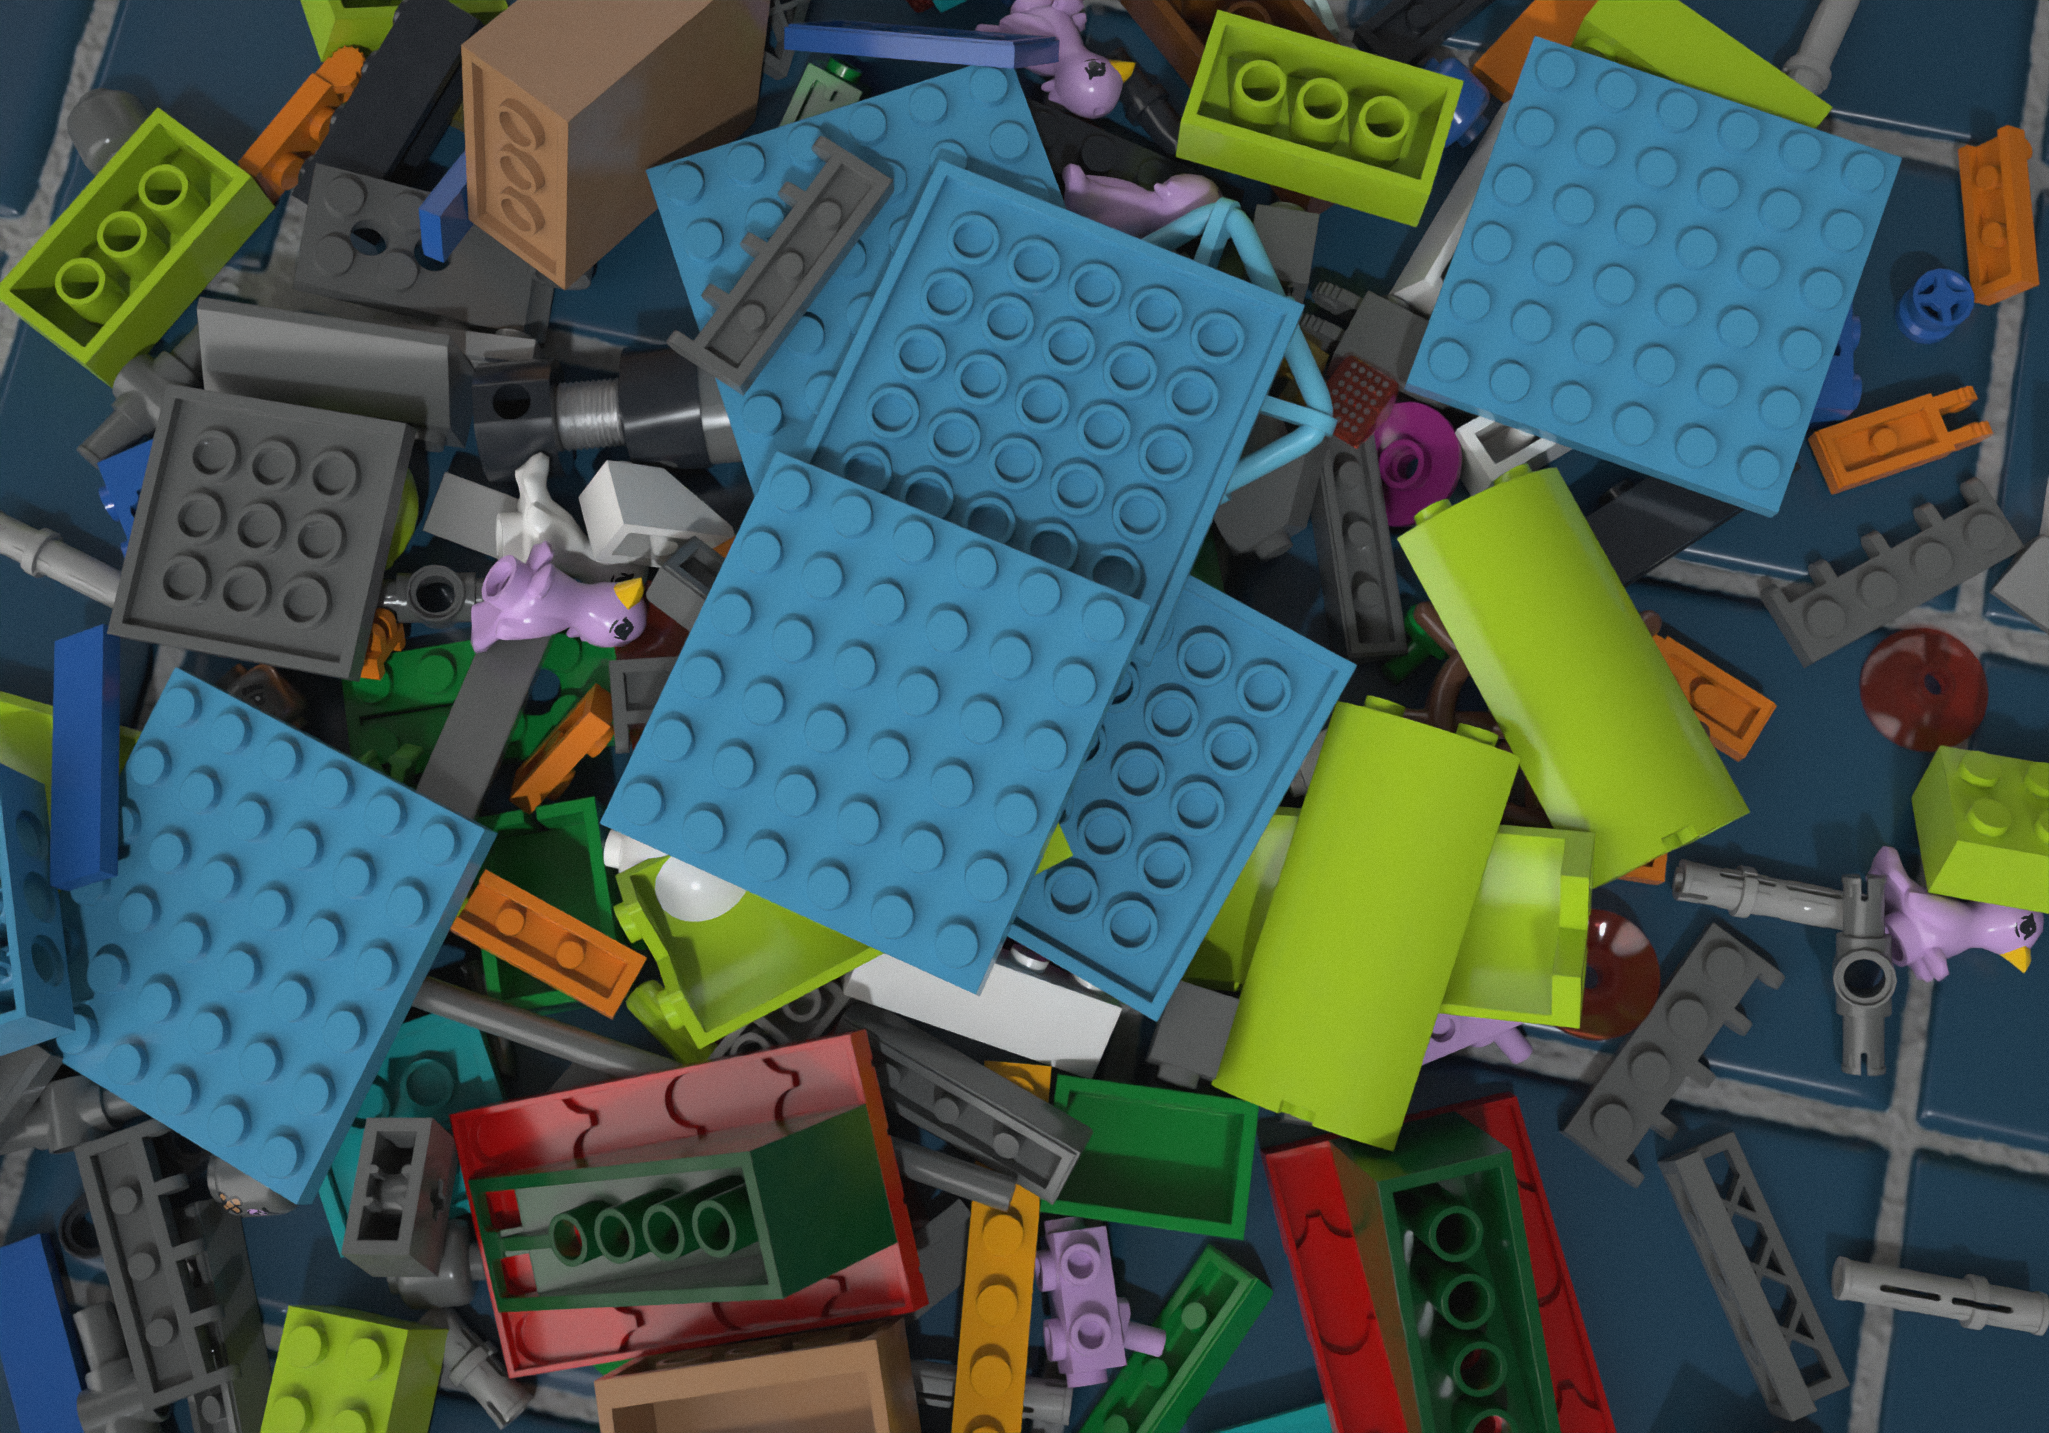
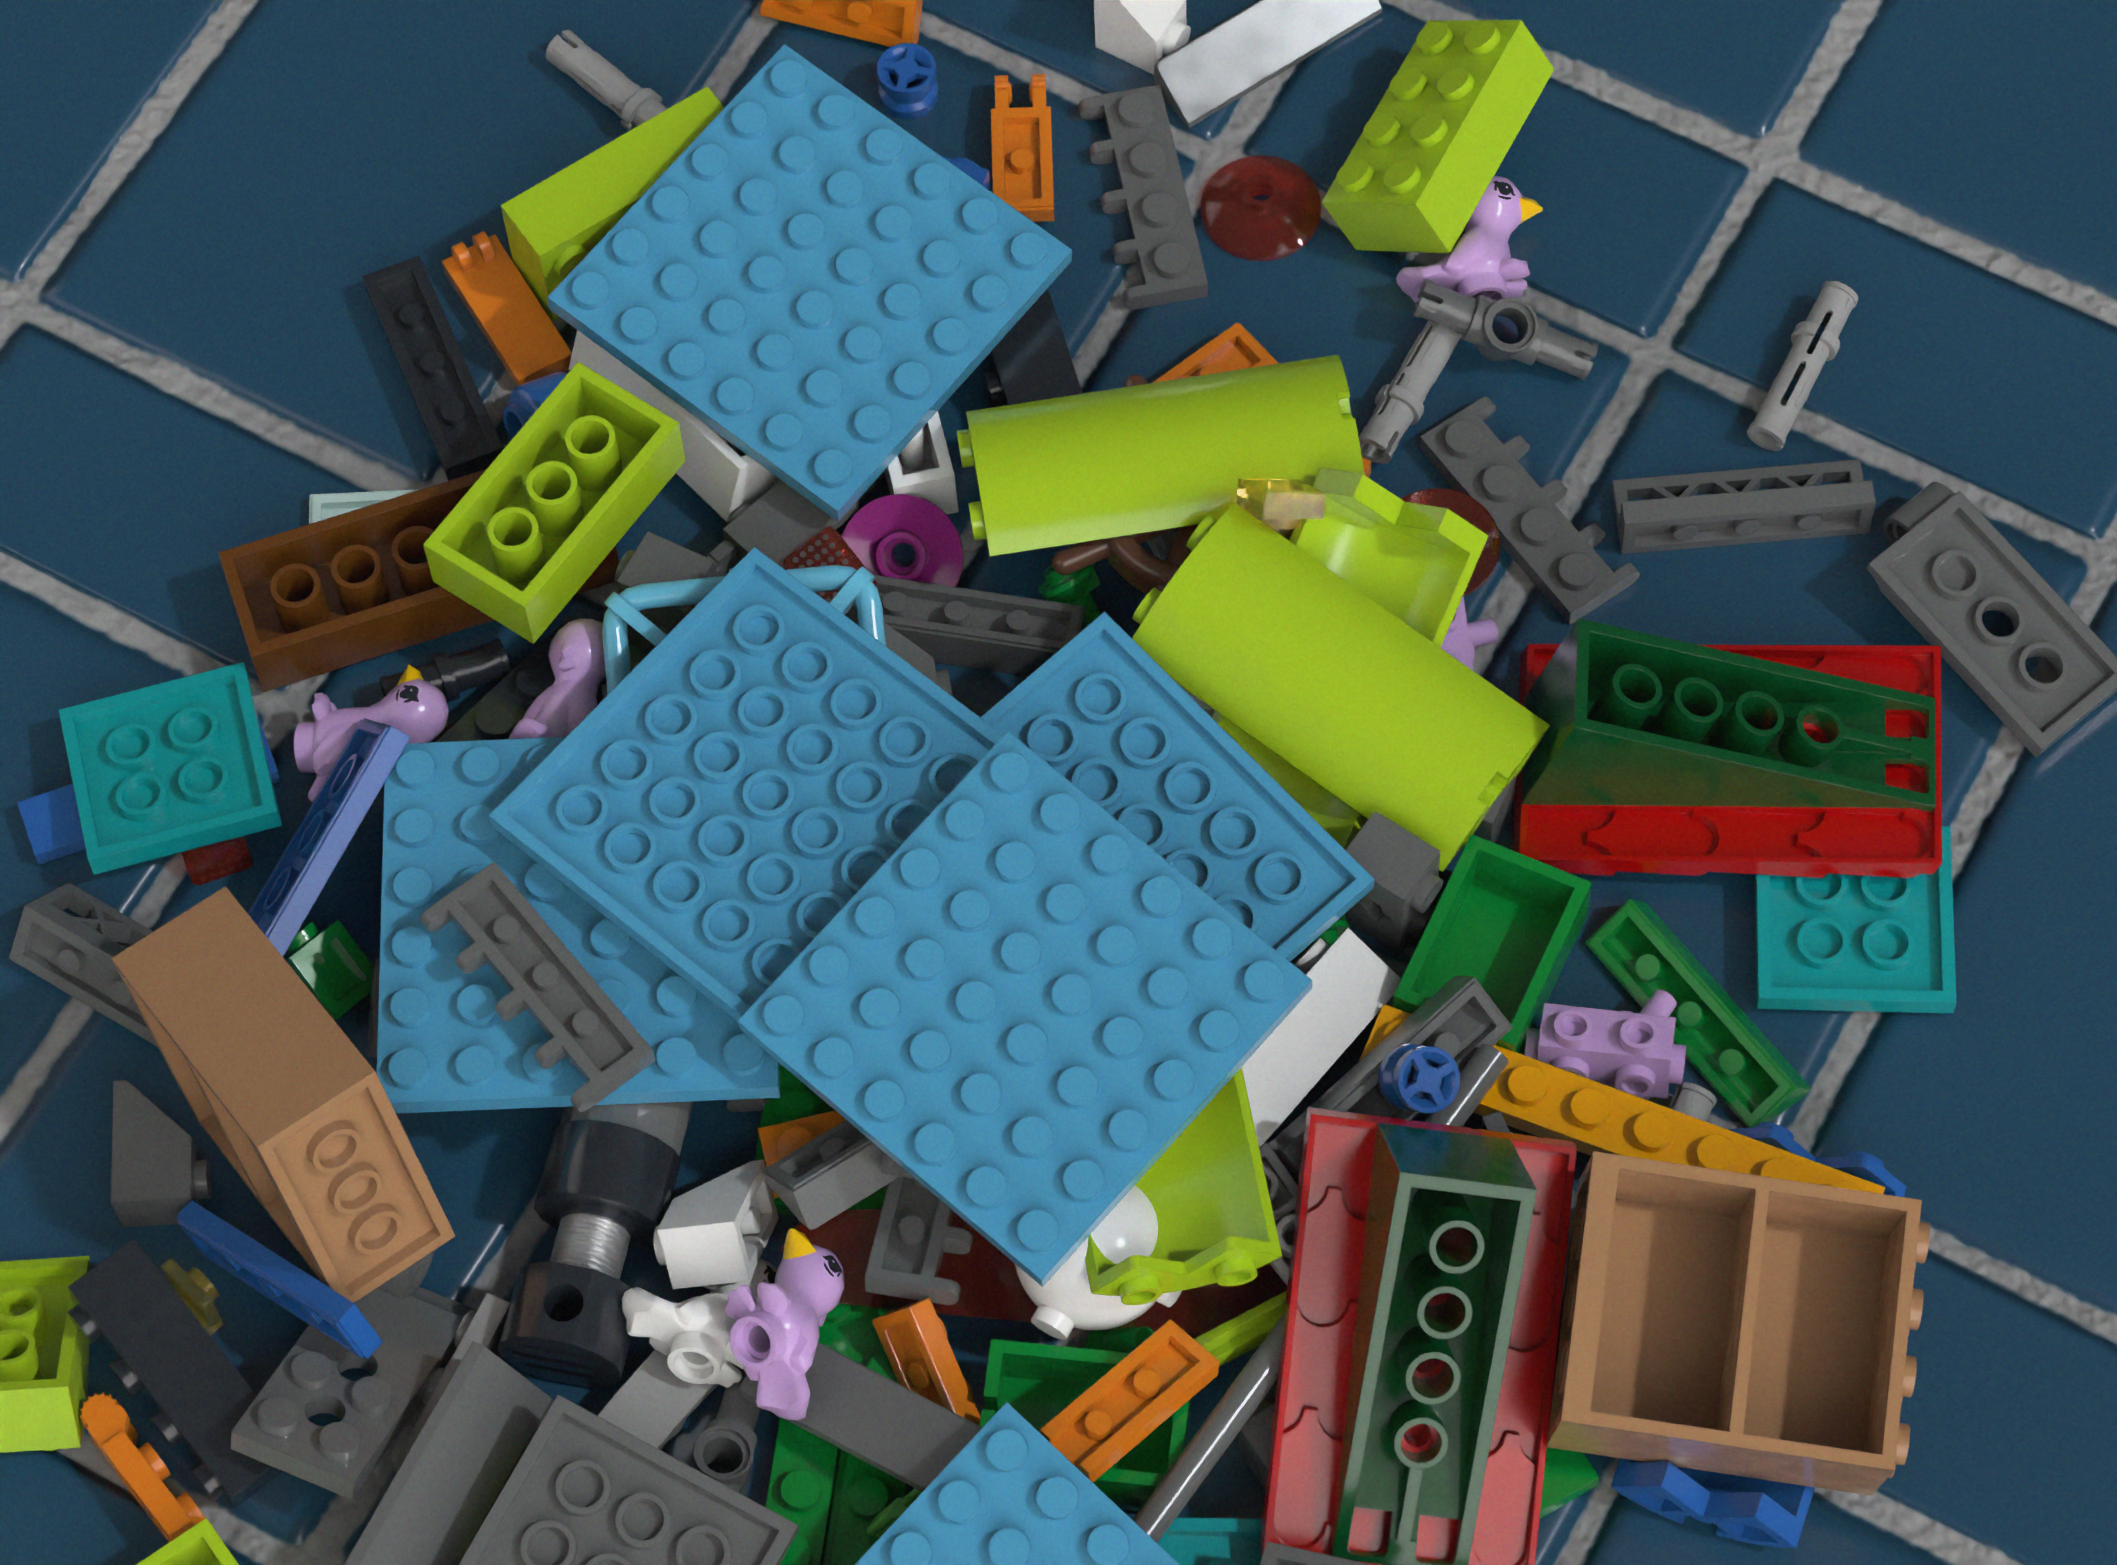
camera: 70 degrees left, 15 degrees down
(945, 1145) = (1435, 1077): none -> blue wheel
(1536, 802) = (1281, 502): none -> clear yellow bracket

